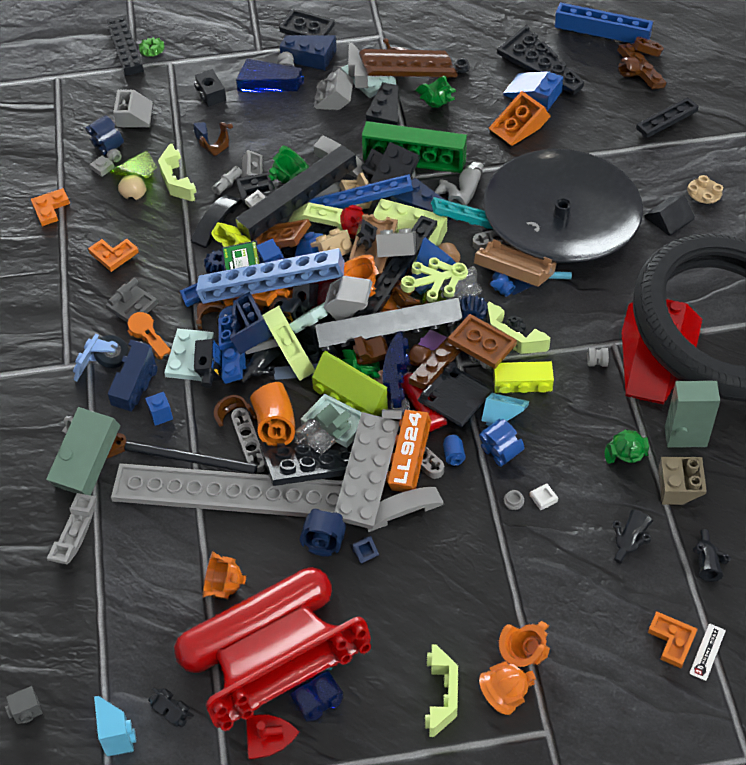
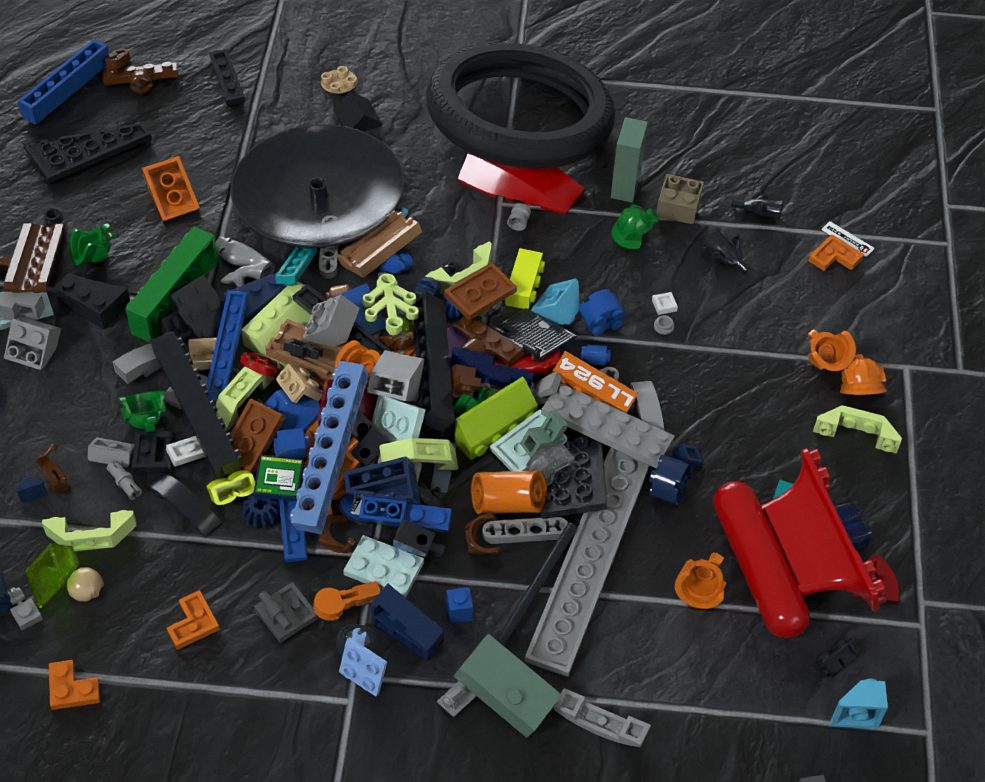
camera: 80 degrees left, 0 degrees up
(540, 86) = (124, 164): blue slope -> none

